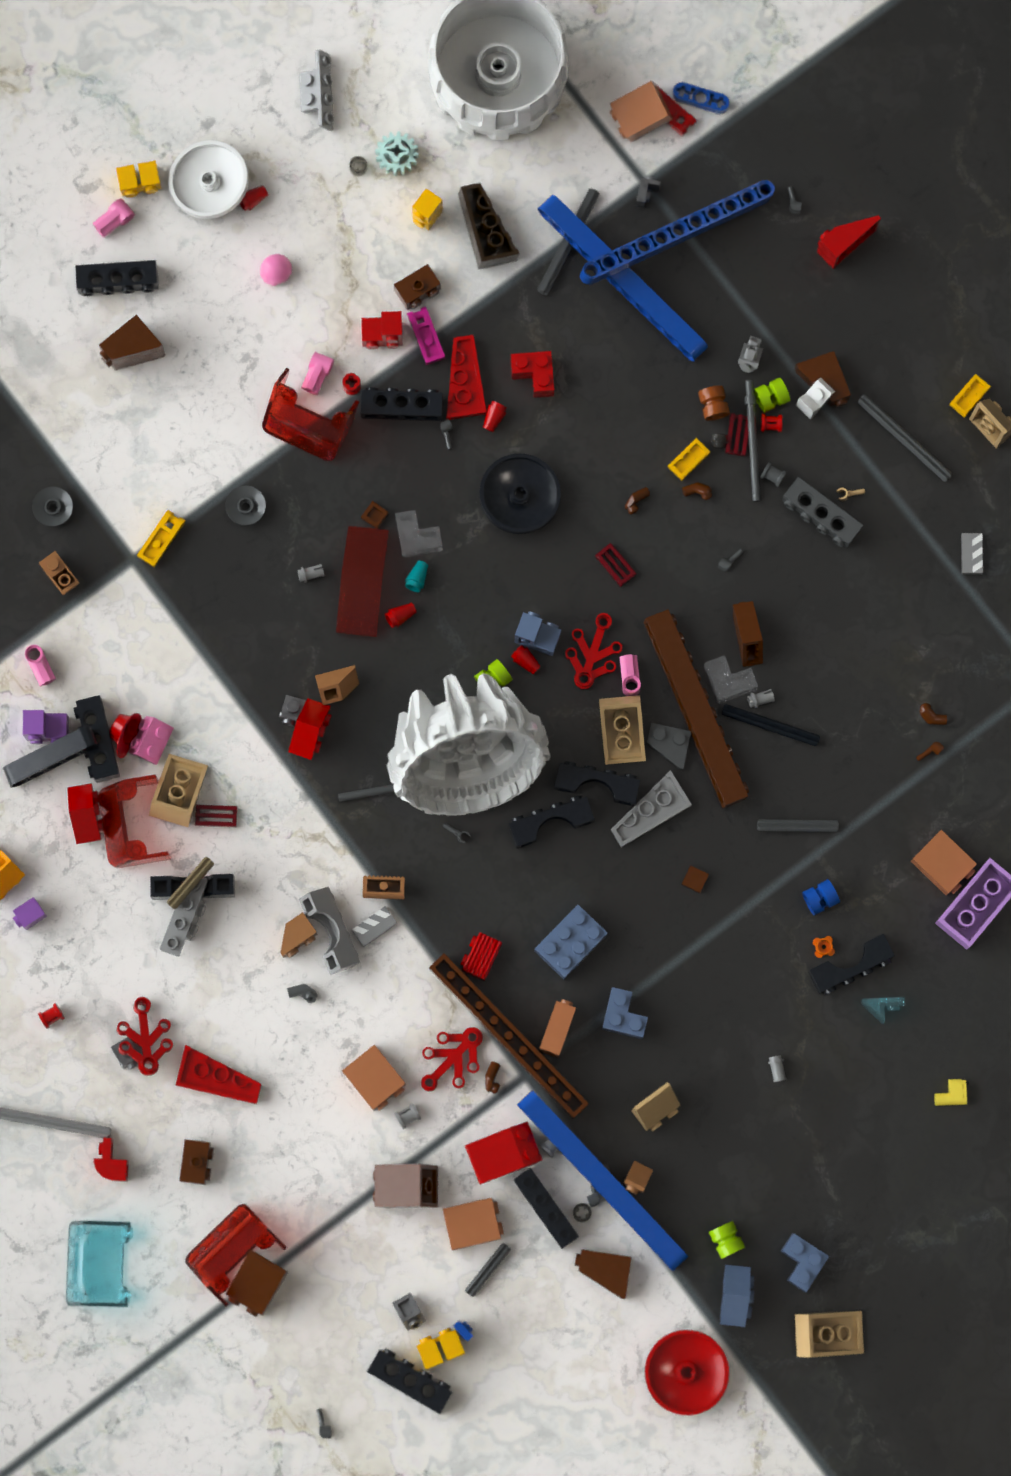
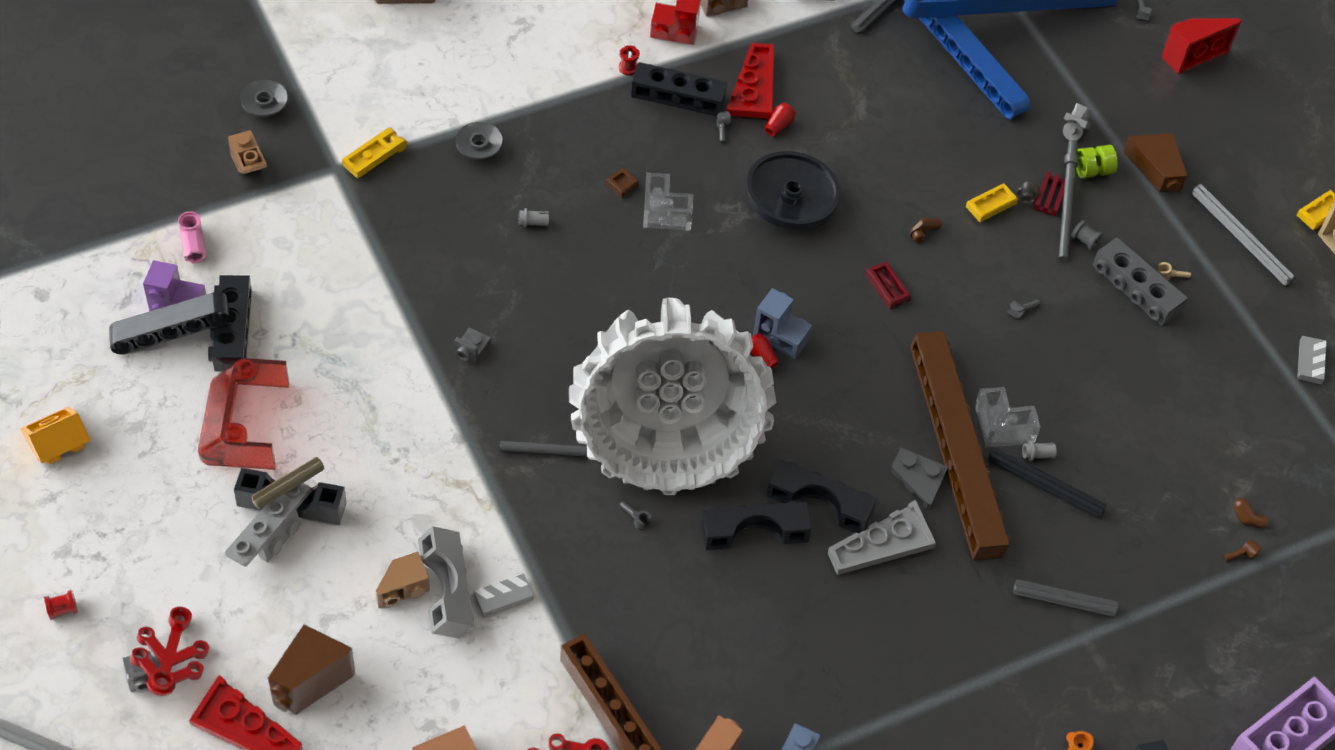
camera: 10 degrees right, 25 degrees down
(28, 914) = (78, 485): medium lavender brick -> none
(83, 813) = (184, 391): red brick -> none
(123, 732) = (268, 321): red piece -> none
(150, 739) = (296, 338): bright pink bracket -> none
(178, 790) = (307, 396): tan slope -> none
(198, 815) = (346, 429): dark red tile -> none
(250, 1028) = (309, 670): none -> reddish brown slope
(304, 427) = (546, 78): clear red windscreen -> none
(304, 991) = (392, 649): dark grey arm -> none
(309, 728) = (483, 361): red brick -> none
(318, 369) = (596, 41): bright pink piece -> none
(337, 684) = (533, 326): medium nougat slope -> none
(362, 581) = (588, 238): clear red windscreen -> none
(383, 887) = (528, 548): medium nougat brick -> none
(400, 614) = (623, 278): red cone -> none
(416, 578) = (653, 248): teal cone -> none
(426, 336) = (721, 38): dark pink plate -> none
(481, 956) = (632, 656): red brick -> none
(535, 366) = (835, 85): red brick -> none
(570, 942) = (751, 664): sand blue brick -> none
(592, 654) = (844, 365): red plant -> none
(622, 729) = (864, 446): tan slope -> none
(630, 673) = (884, 393): bright pink piece -> none
(695, 879) = (924, 630): reddish brown tile -> none
(700, 488) = (996, 231): reddish brown arm -> none
(714, 403) = (1029, 155): dark orange wheel -> none
(748, 633) = (1035, 378): reddish brown slope -> none
(773, 419) = (1091, 188): red bush -> none
(815, 398) = (1141, 175): white slope -> none
(821, 897) = (1085, 682): blue wheel -> none
(944, 863) = (1250, 678): nougat brick -> none

